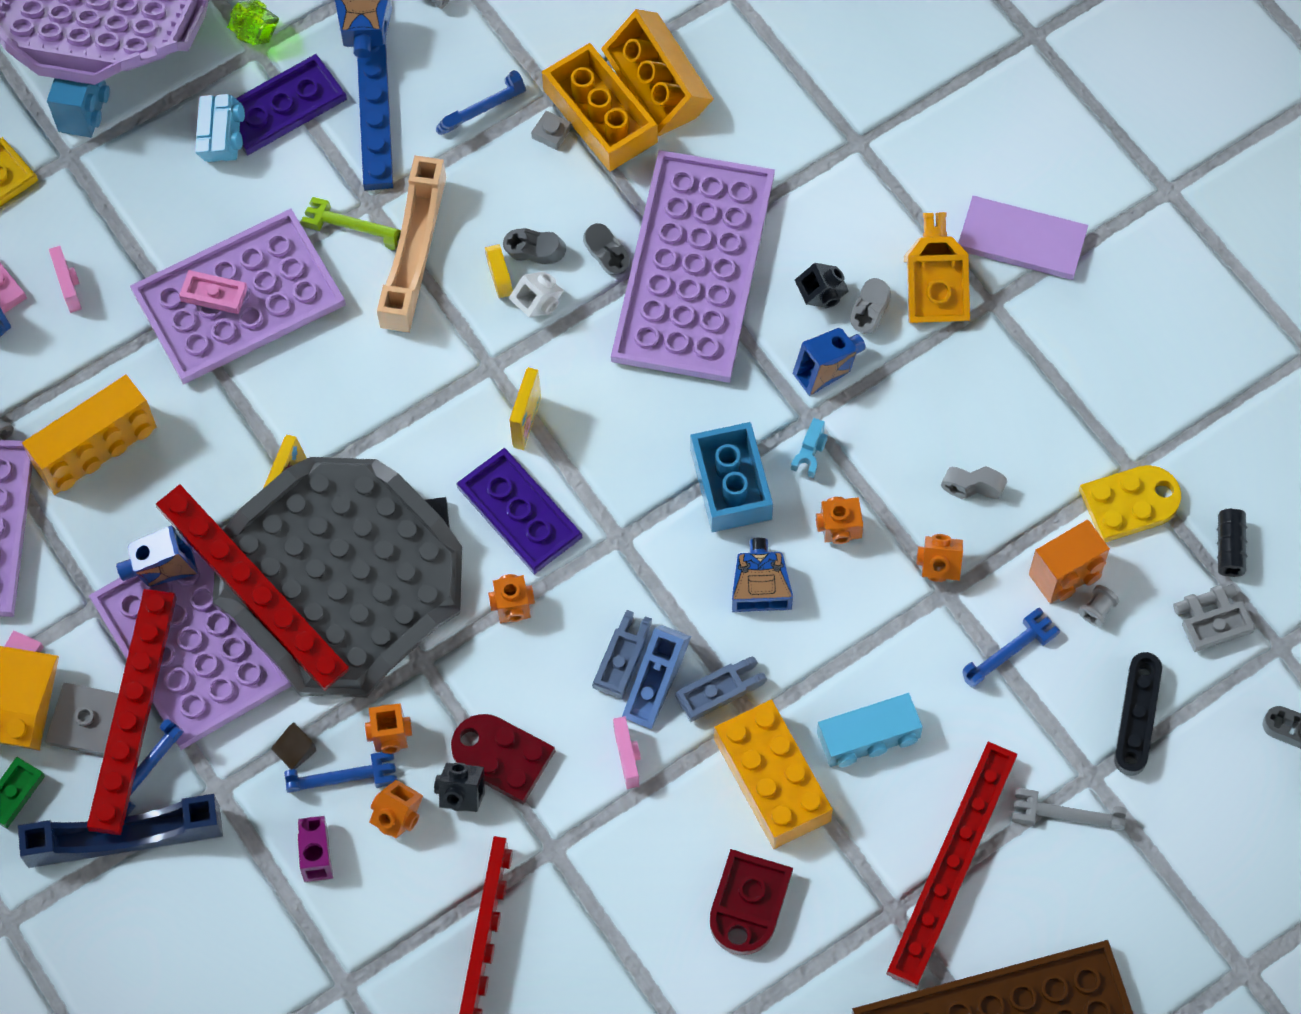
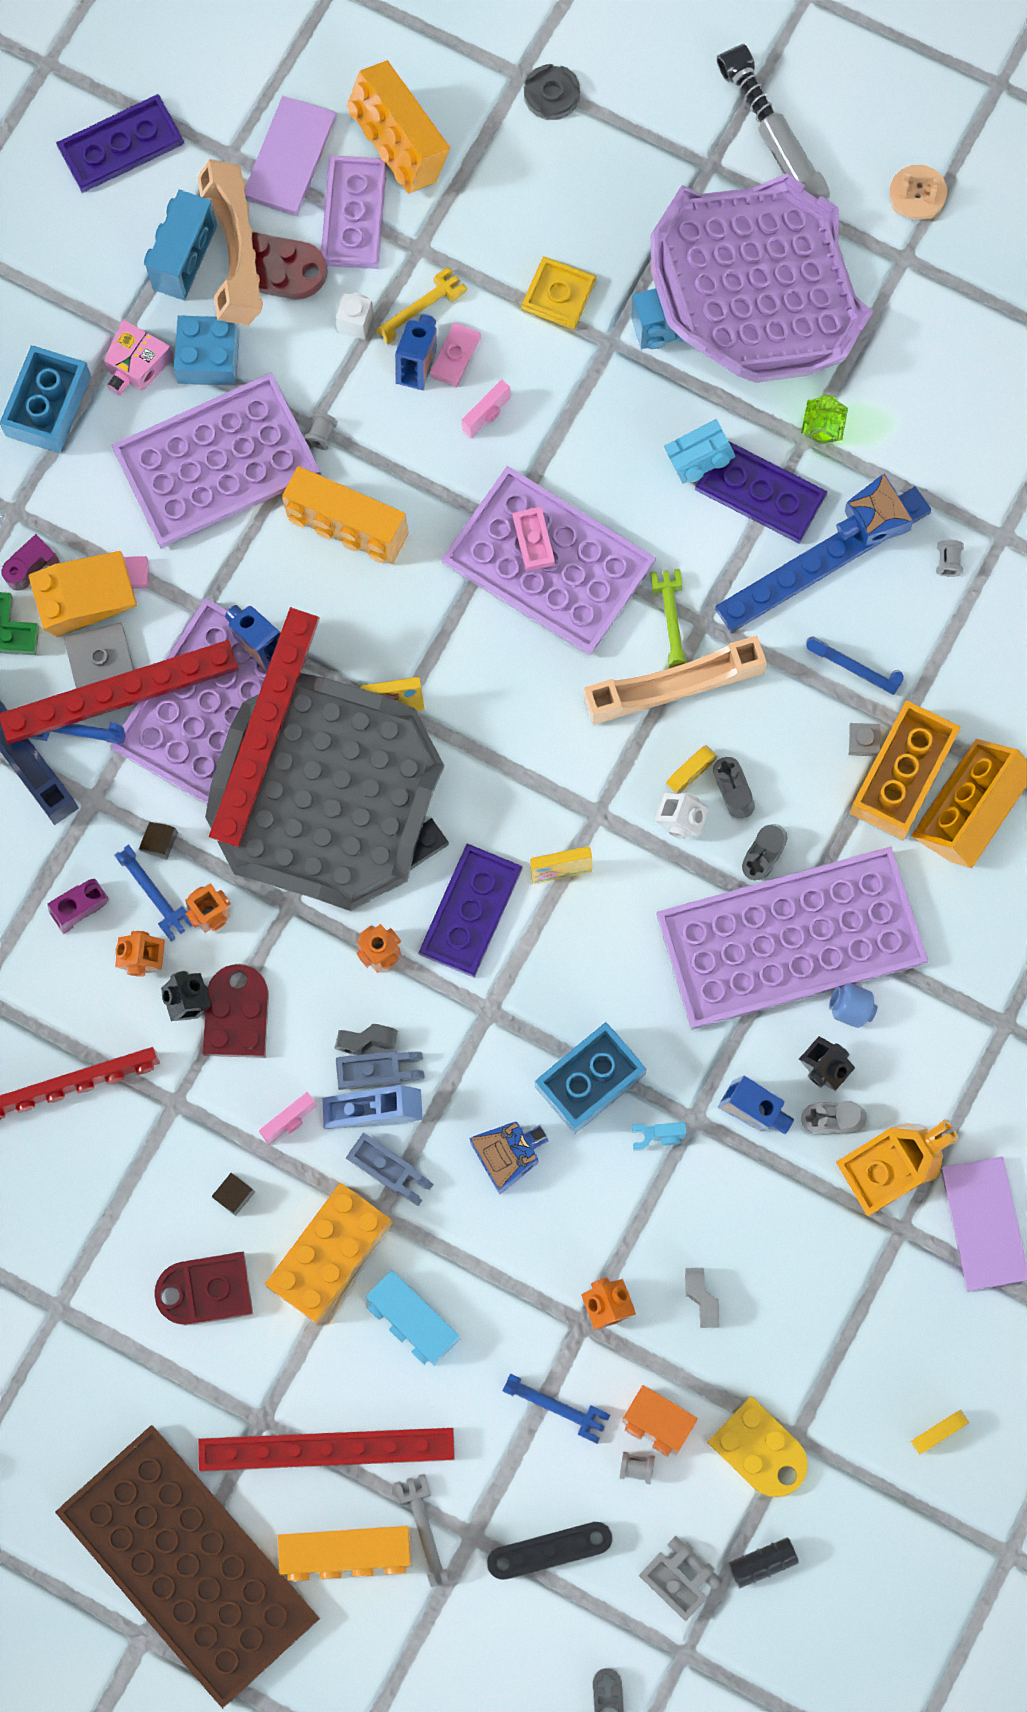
camera: 65 degrees right, 10 degrees up
(587, 661) = (358, 1043): none -> dark grey piece
(670, 836) = (233, 1194): none -> dark brown slope
(780, 244) = (852, 1005): none -> medium blue head
(840, 520) = (599, 1206): orange brick -> none
(1061, 876) = (345, 1551): none -> light orange brick
(1184, 352) = (939, 1432): none -> yellow beam

